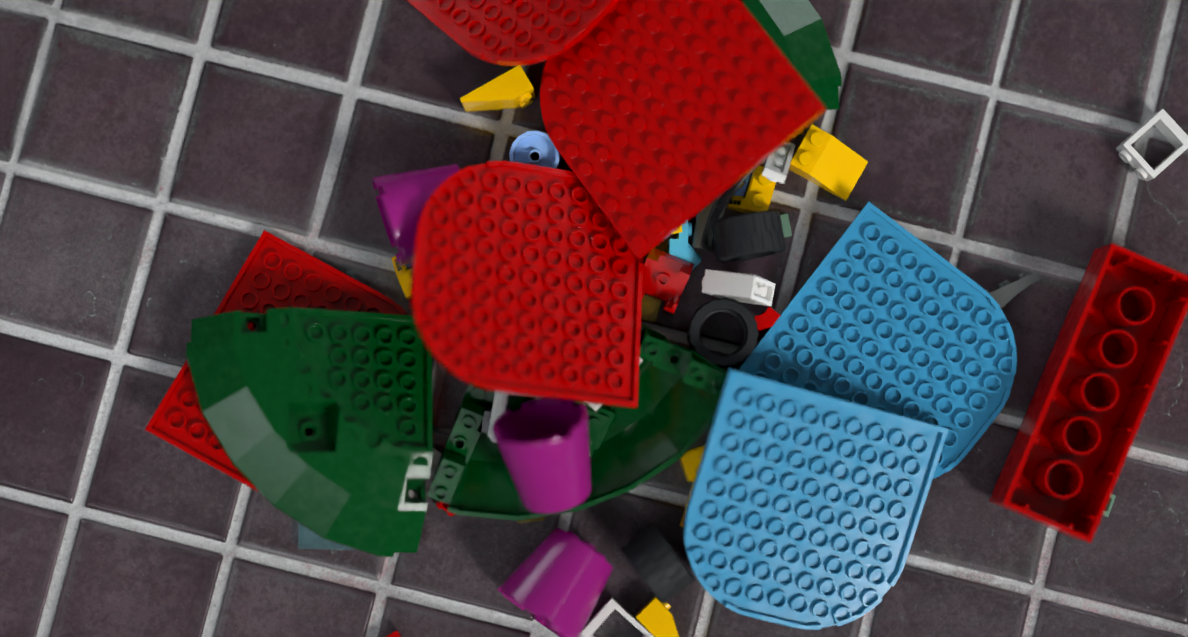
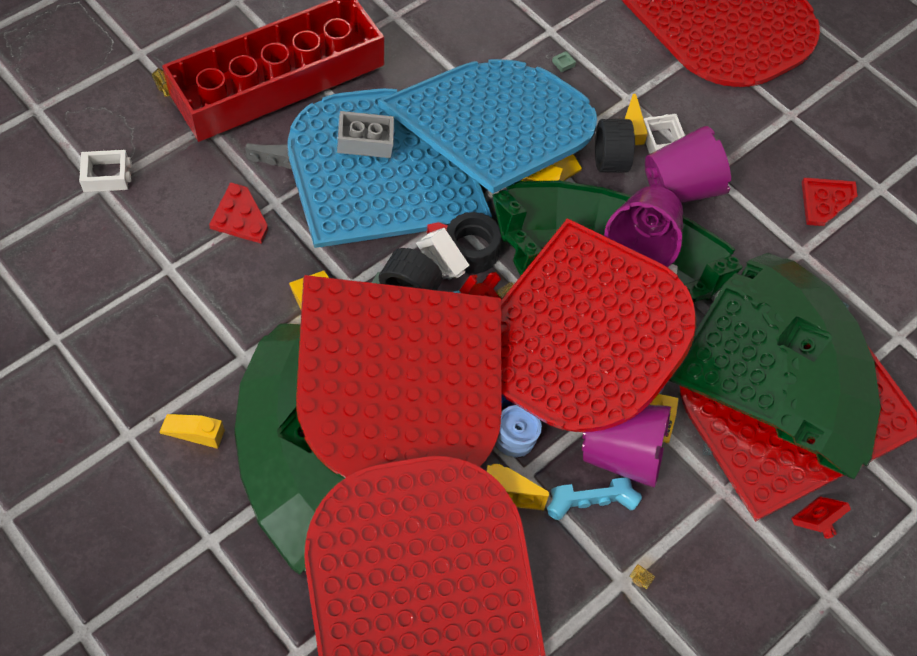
camera: 150 degrees left, 25 degrees down
(207, 273) = (821, 515): none -> red tile
(335, 101) = (641, 577): none -> clear yellow plate
(450, 126) = (619, 490): none -> medium azure plate
(923, 367) = (365, 134): none -> light grey brick
(979, 200) = (239, 215): none -> red plate

